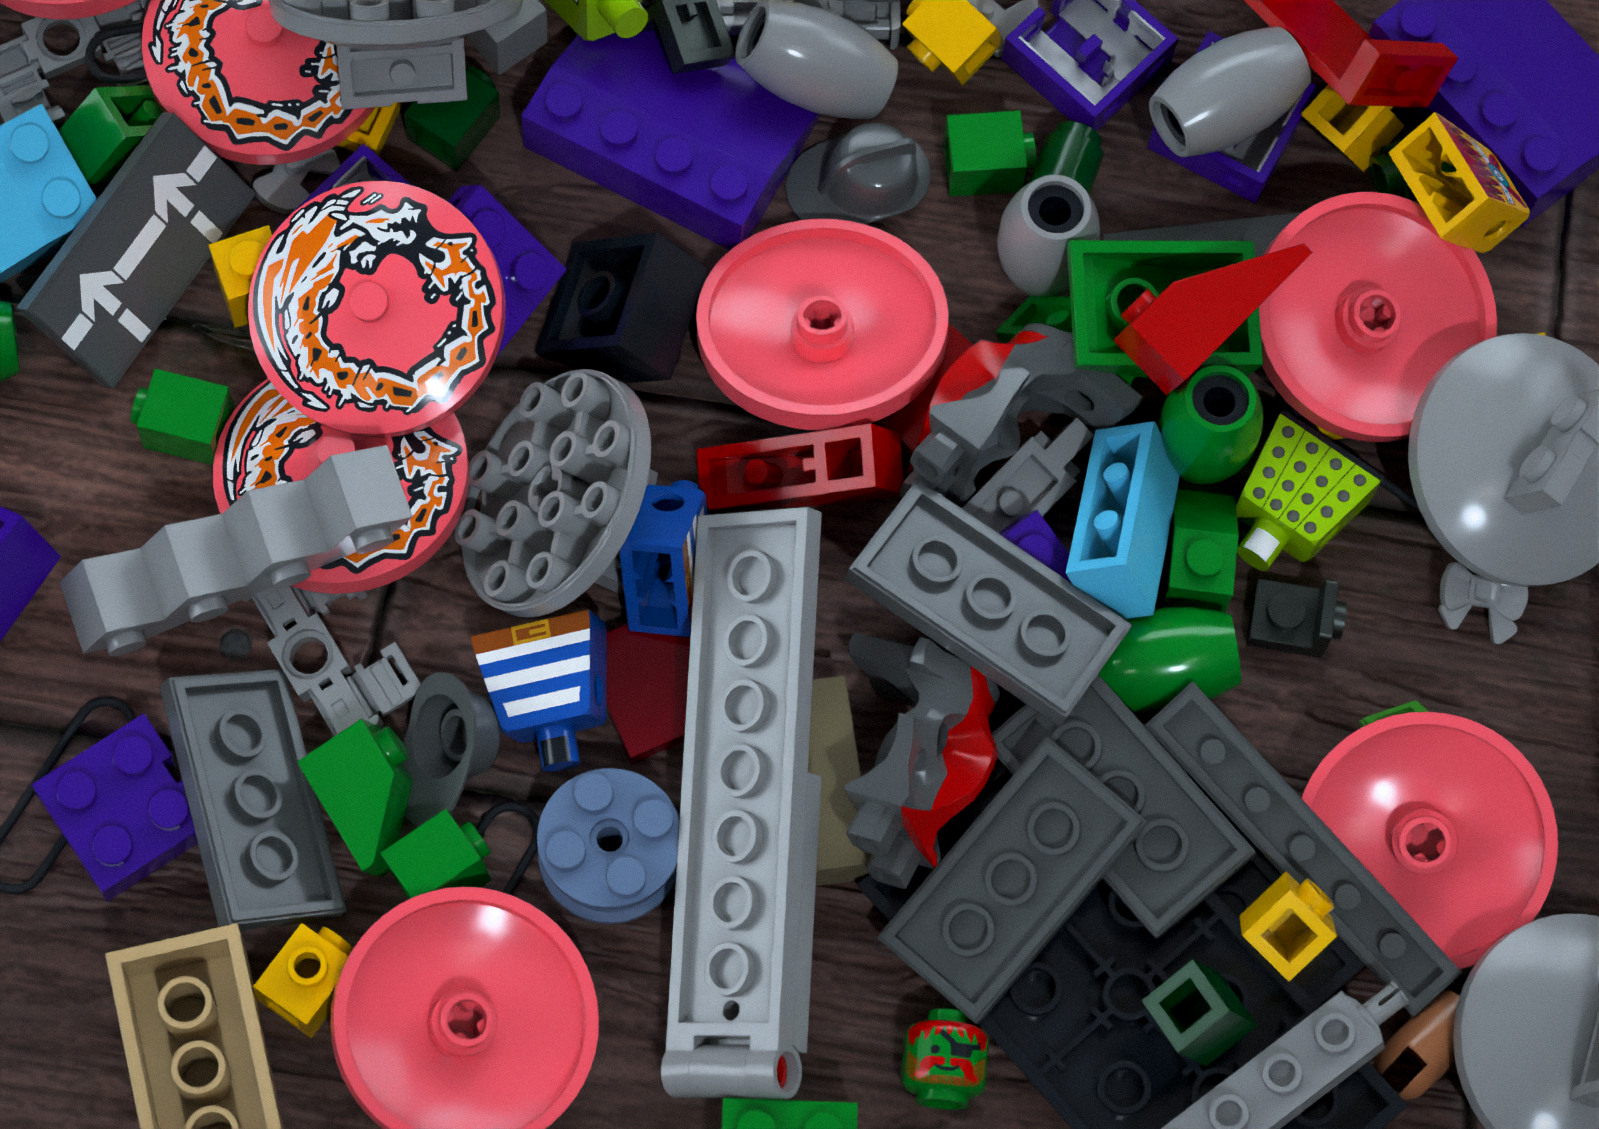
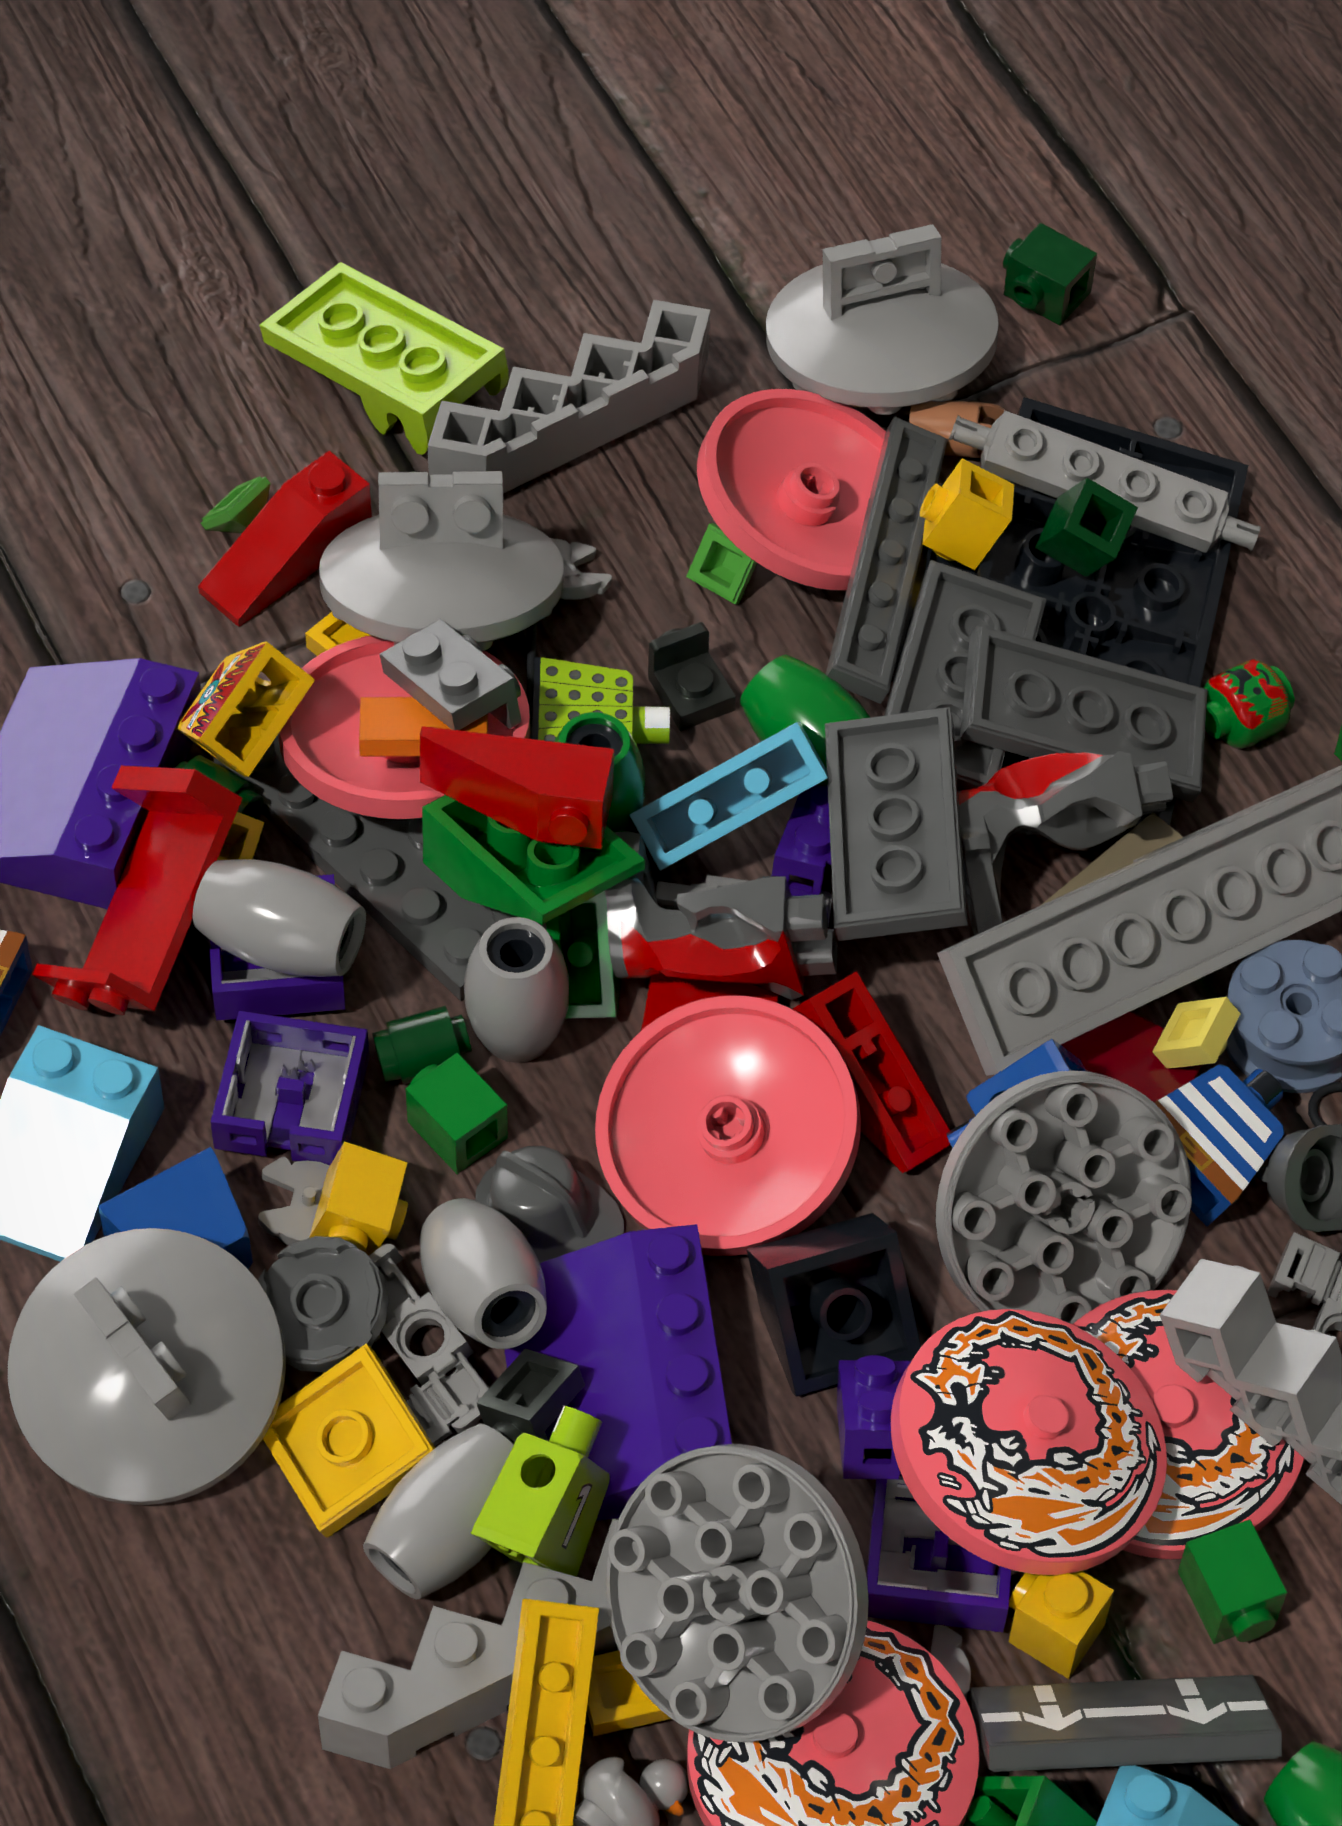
camera: 120 degrees left, 15 degrees down
(642, 734) = (1196, 1033): none -> light yellow plate
(1201, 552) = (694, 745): green slope -> none
(1344, 305) = (394, 725): none -> orange tile
(1374, 351) = (453, 677): none -> dark grey bracket

